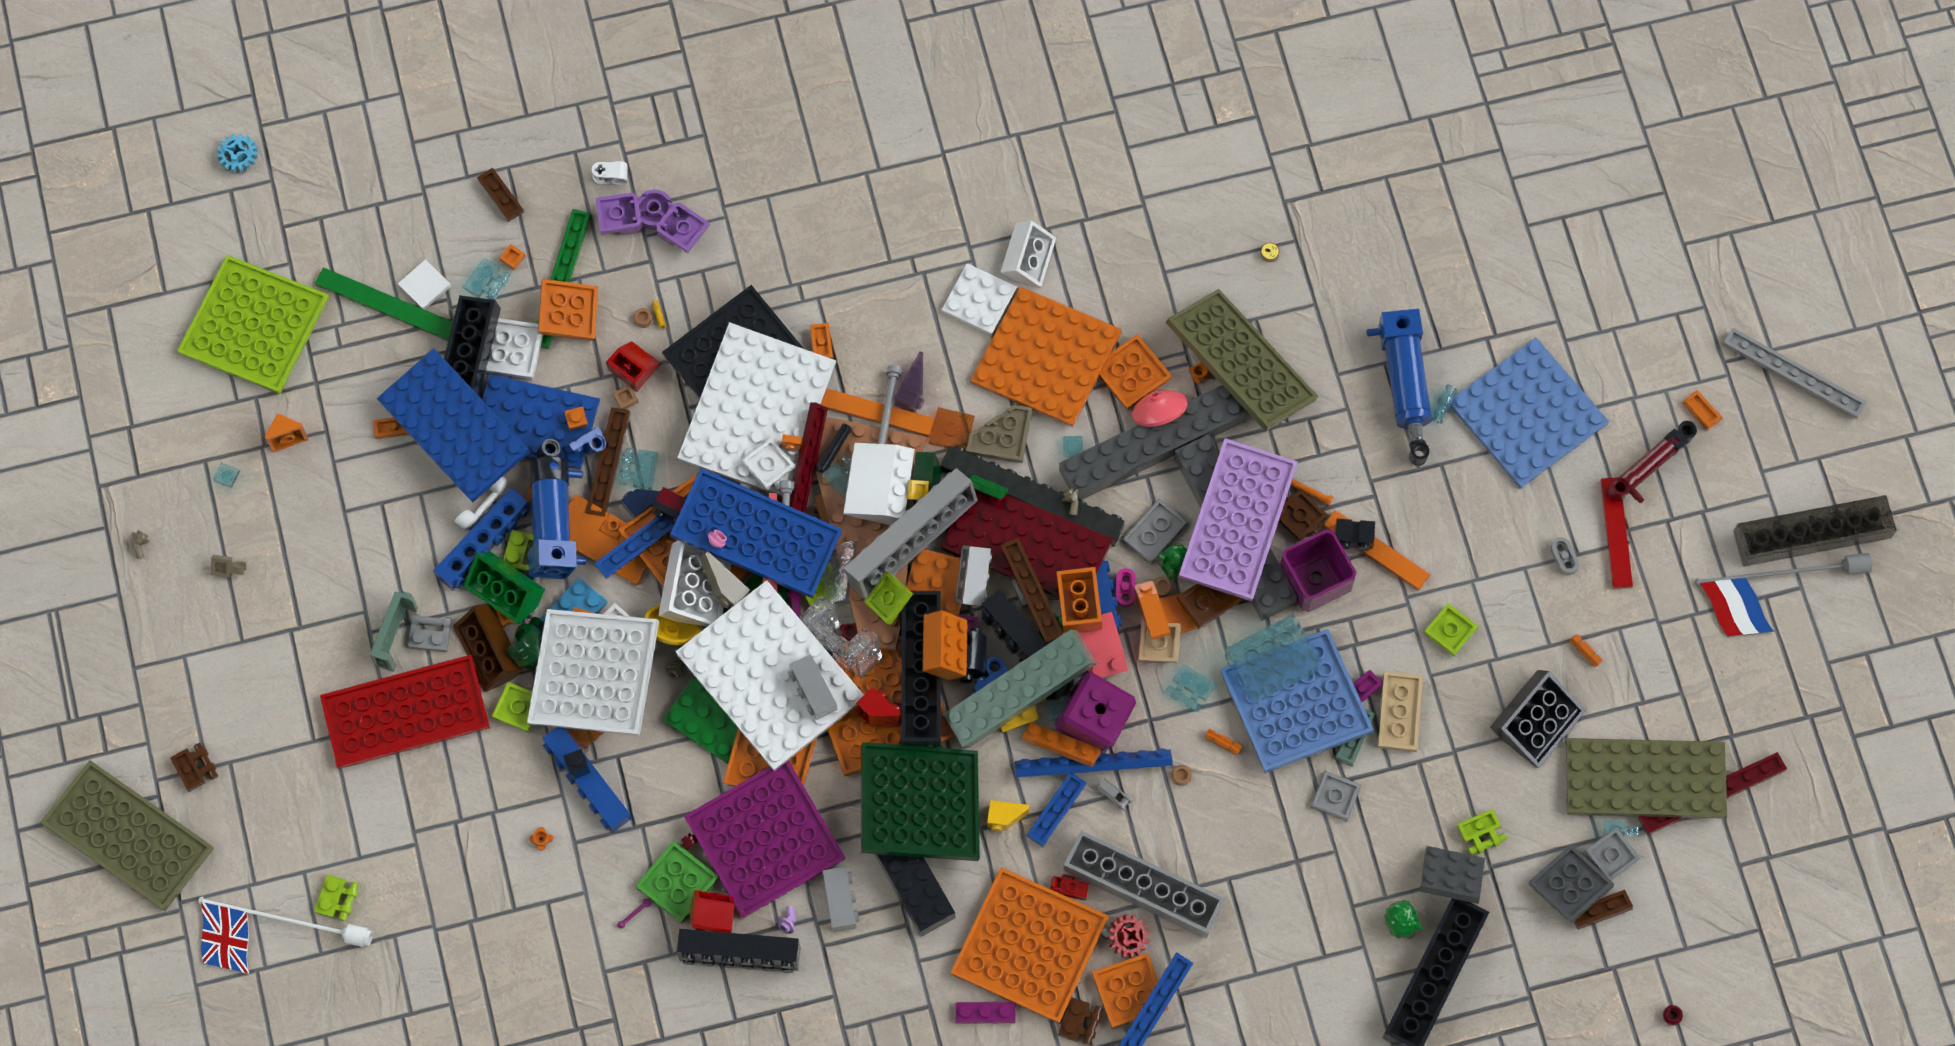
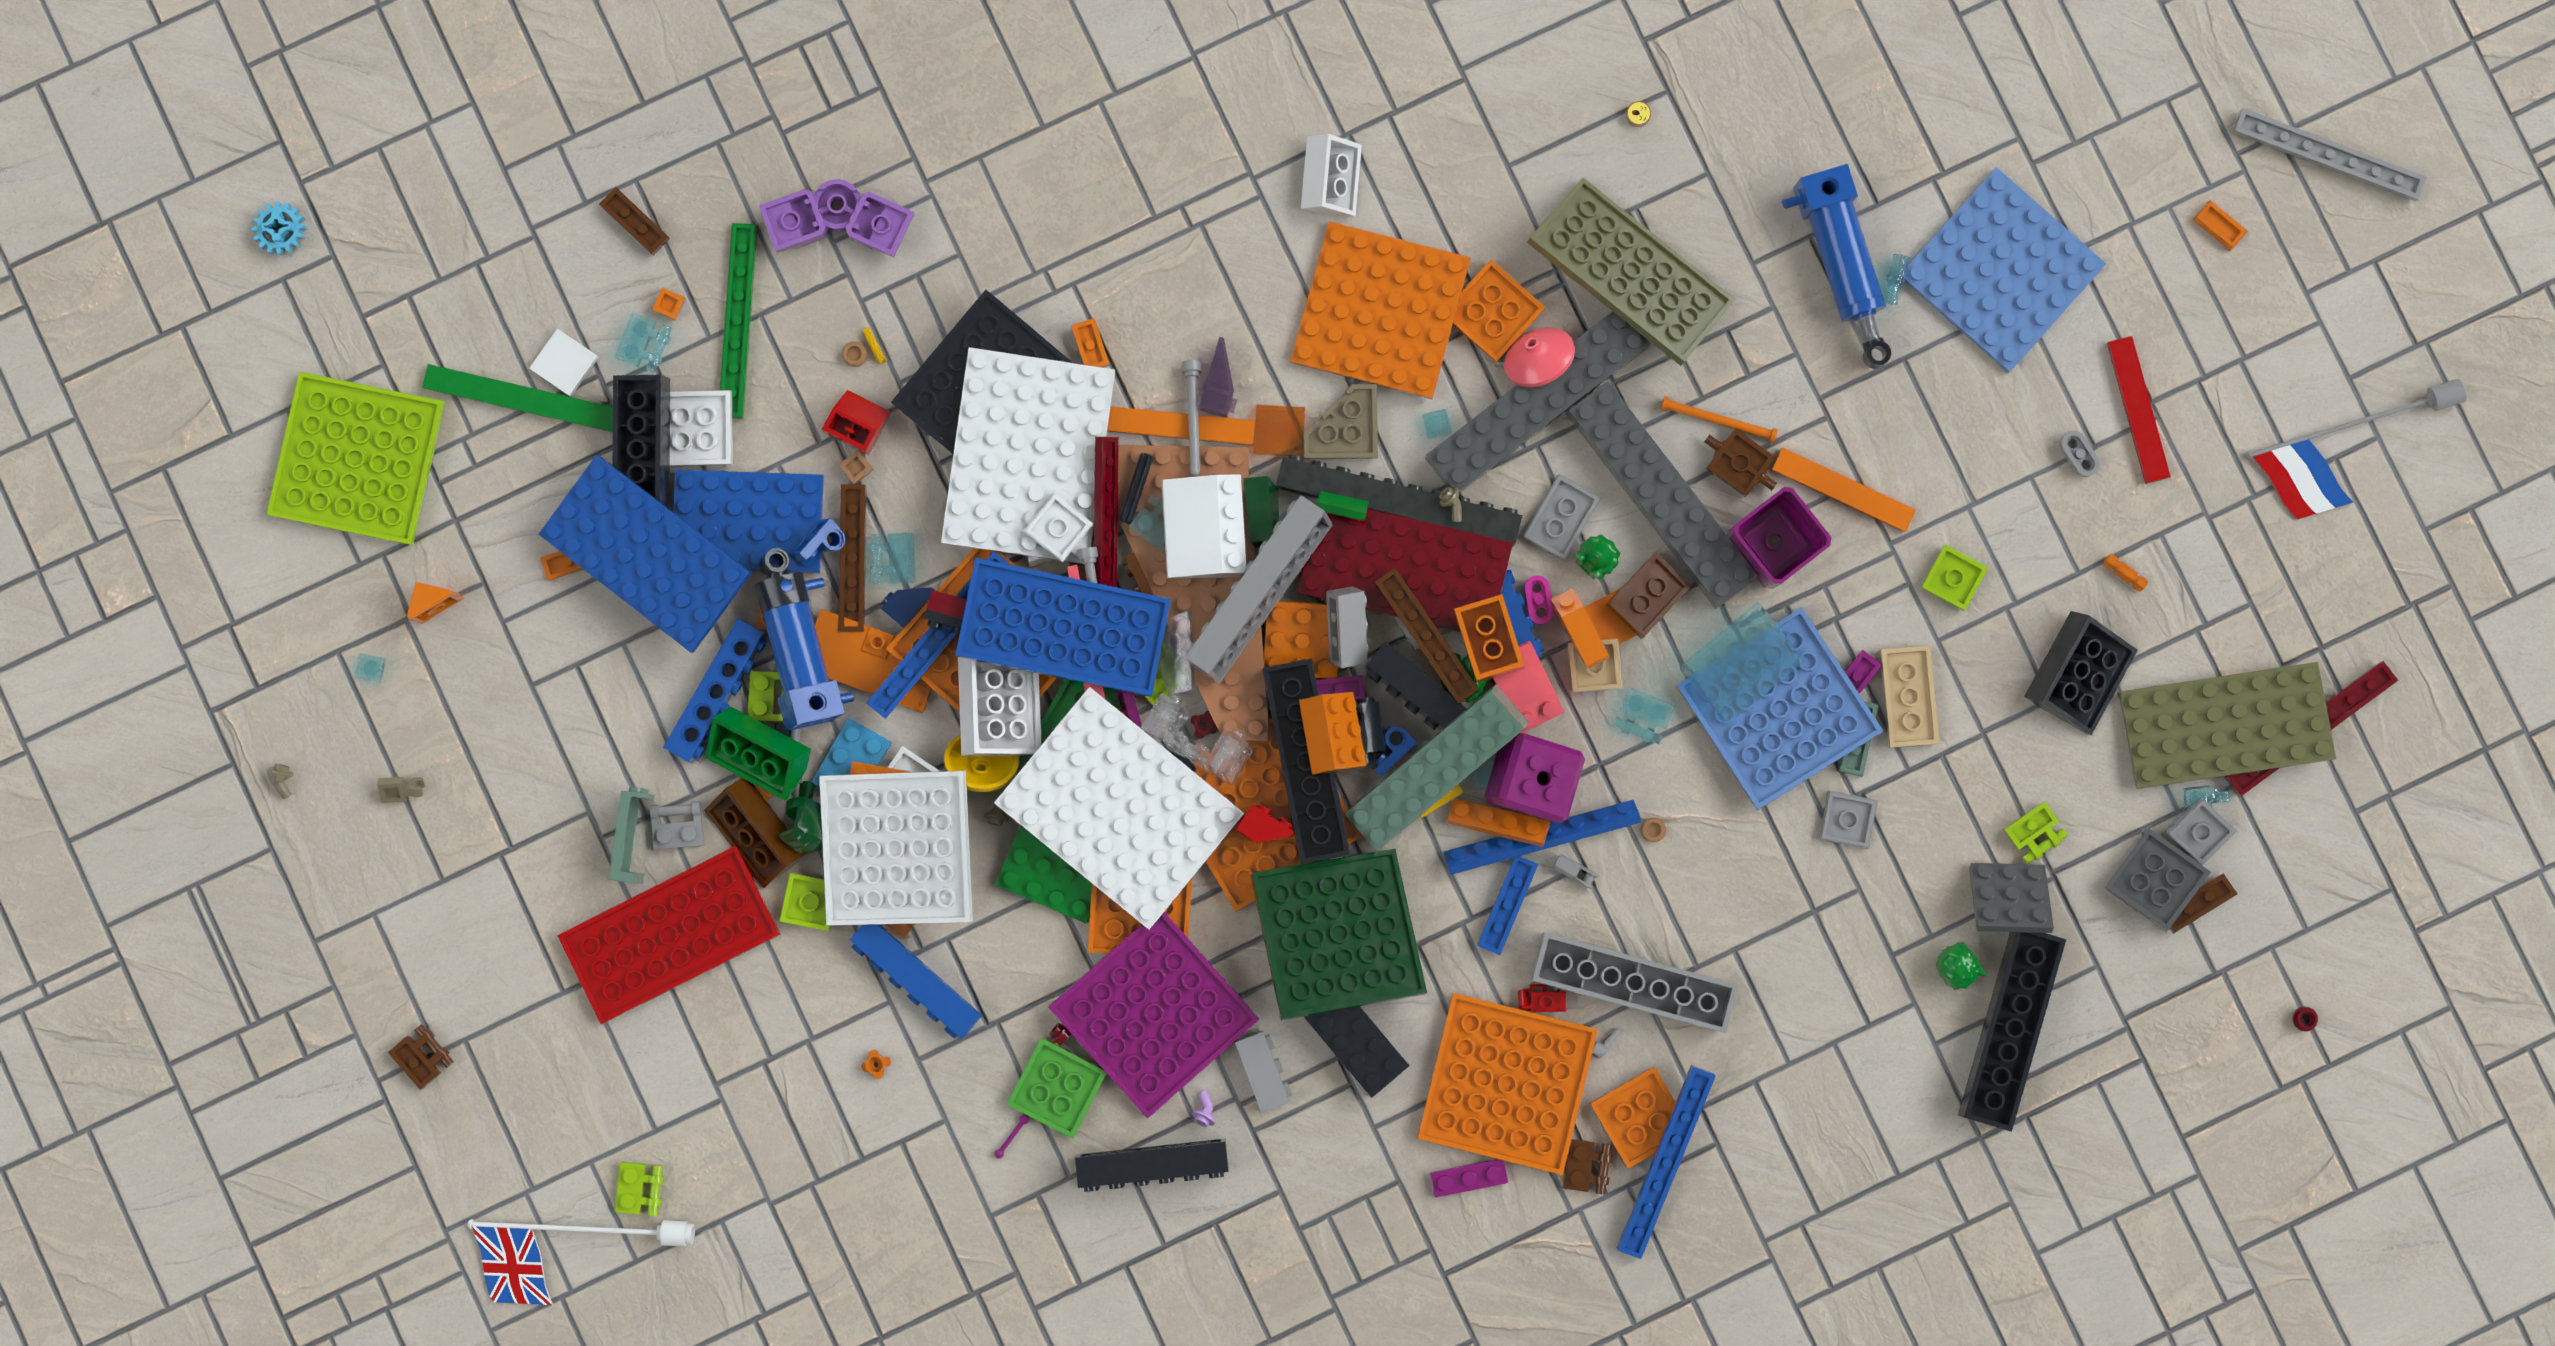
camera: 15 degrees left, 15 degrees up
(127, 835) = (358, 1160): olive plate -> none
(469, 519) = (693, 667): white piece -> none
(567, 310) = (756, 364): orange plate -> none
(576, 418) = (799, 510): orange plate -> none
(576, 764) = (900, 969): black brick -> none
(612, 173) = (773, 165): white piece -> none
(711, 911) = (1109, 1124): red slope -> none
(717, 539) = (1017, 650): bright pink plate -> none
(725, 585) = (1035, 699): slope -> none
(791, 443) = (1081, 495): orange plate -> none
(812, 687) = (1176, 819): light grey brick -> none
(888, 597) = (1247, 680): lime plate -> none
(917, 489) = (1256, 530): yellow plate -> none
(979, 299) = (1279, 248): white plate -> none
(1005, 814) = (1444, 925): yellow slope -> none
(1135, 940) = (1635, 1042): red gear -> none
(1163, 586) = (1584, 588): medium nougat tile -> none
(1204, 372) = (1578, 301): orange plate -> none
(1223, 741) = (1696, 776): orange axle -> none
(1238, 519) = (1667, 490): lavender plate -> none
(1355, 534) = (1815, 477): black brick -> none
(1650, 462) = (2188, 282): dark red piece -> none
(1814, 530) = (2387, 362): clear smoke brick -> none

